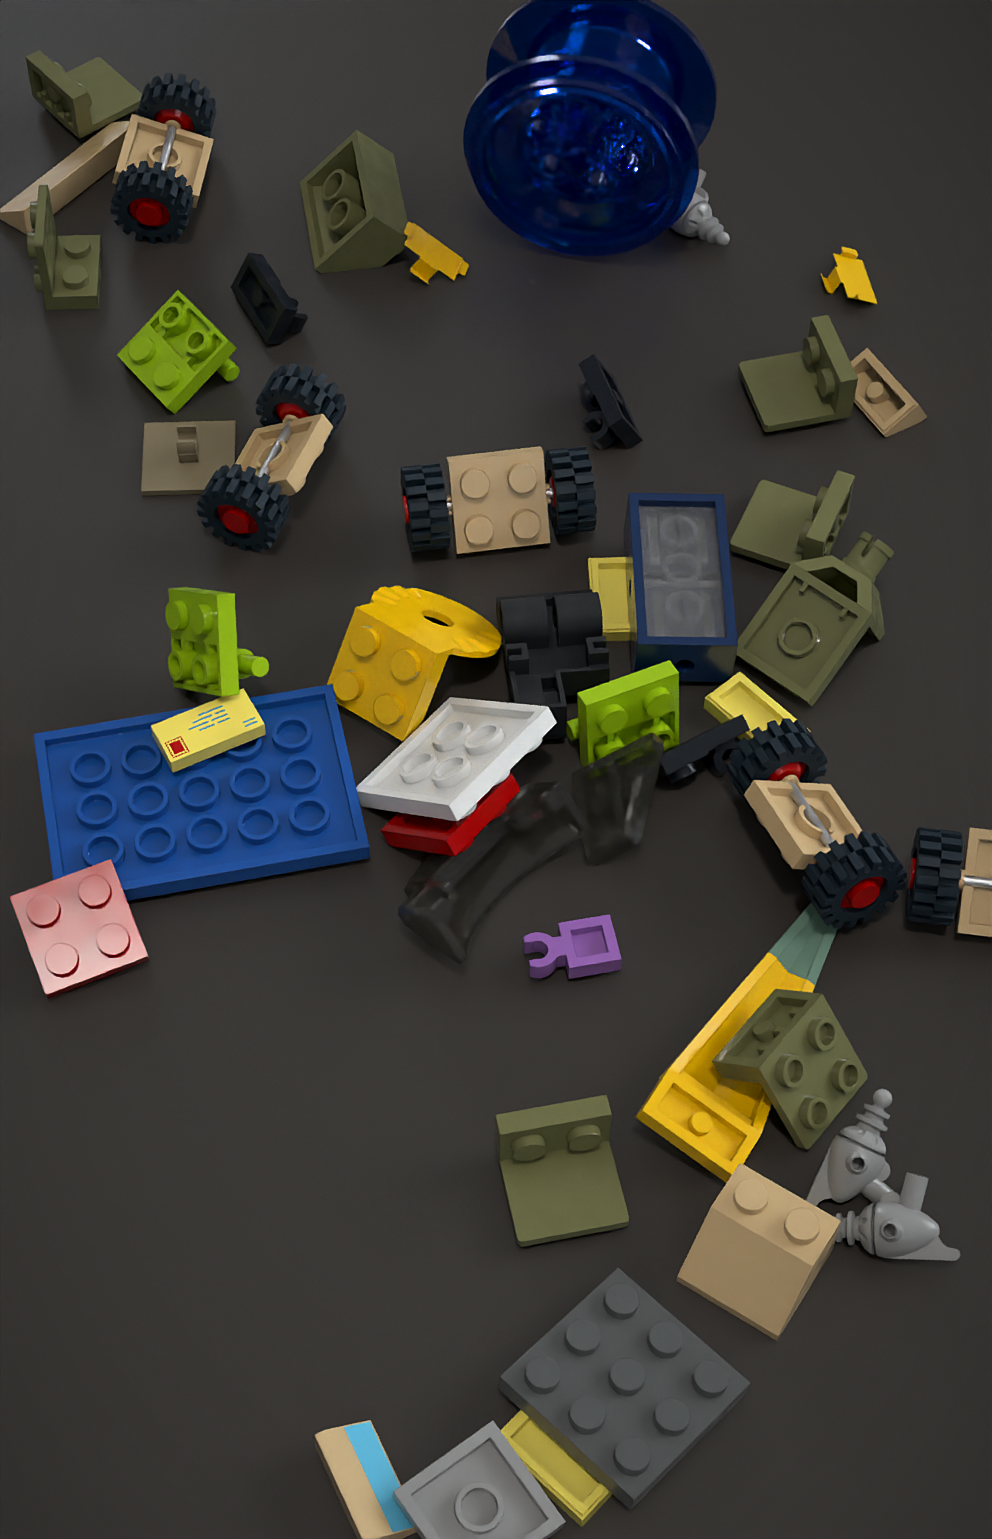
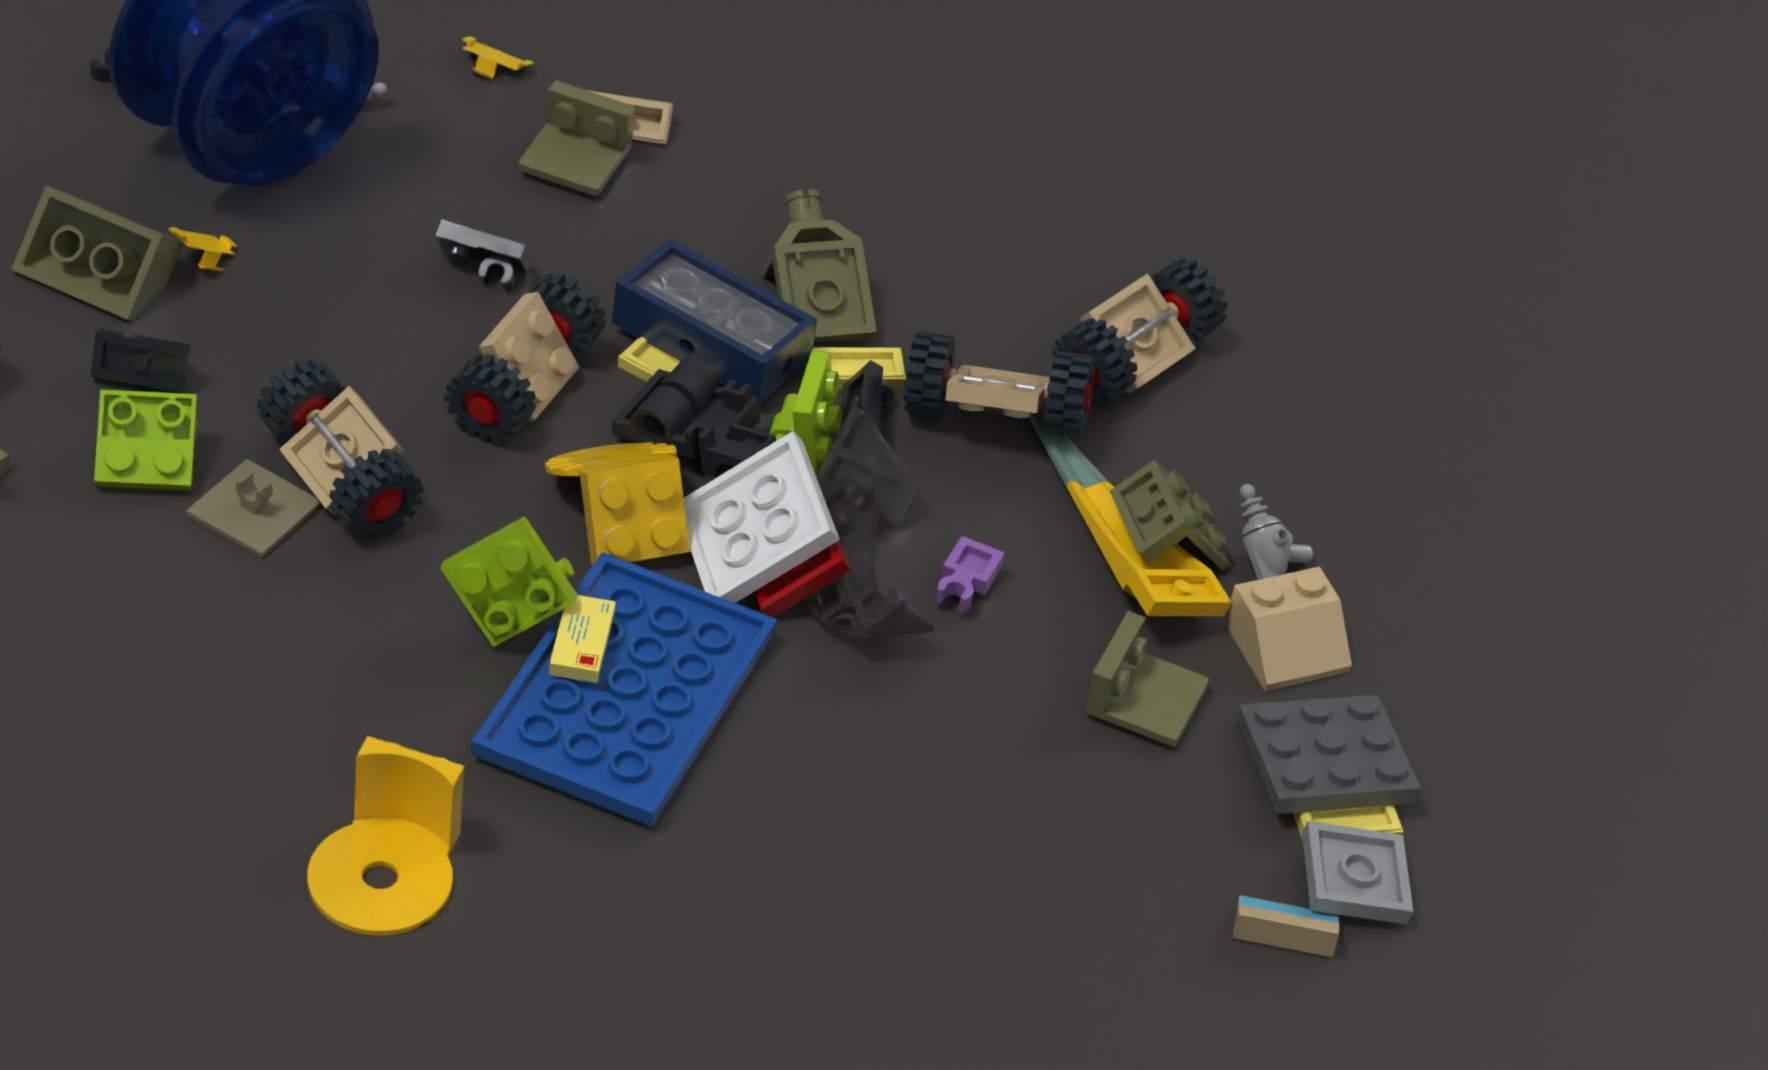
camera: 60 degrees left, 10 degrees down
(79, 928) = (691, 814): plate -> none
(793, 525) = (726, 230): olive bracket -> none
(897, 1226) = (1334, 553): light grey piece -> none

